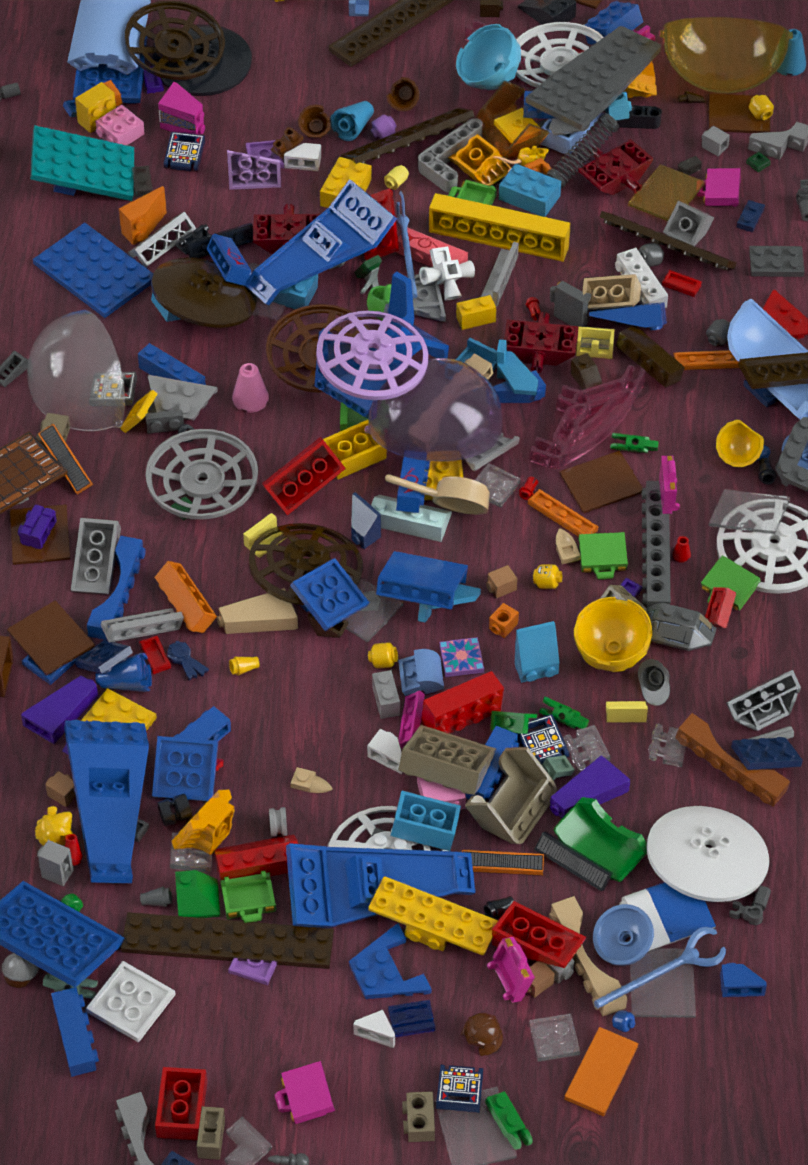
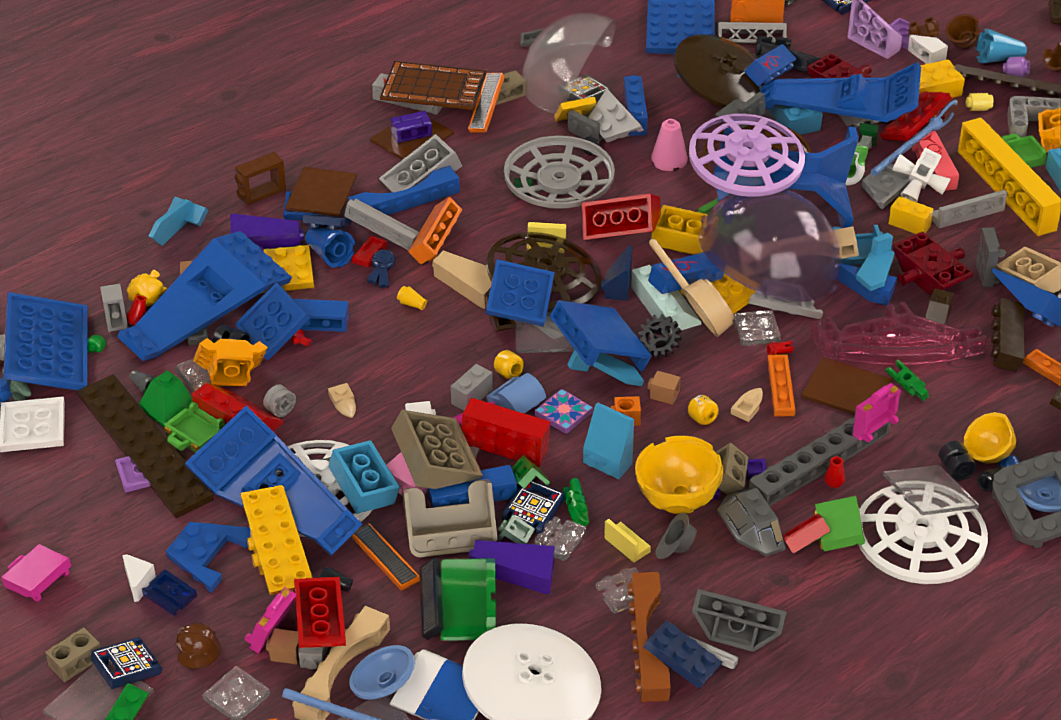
camera: 50 degrees right, 10 degrees down
(266, 318) = (753, 106): none -> dark grey bracket
(450, 538) = (662, 328): none -> black gear
(533, 306) = (966, 242): red pin -> none
(595, 342) = (976, 296): light yellow window -> none
(603, 553) = (770, 429): bright green piece -> none
(736, 477) = (957, 460): none -> black wheel

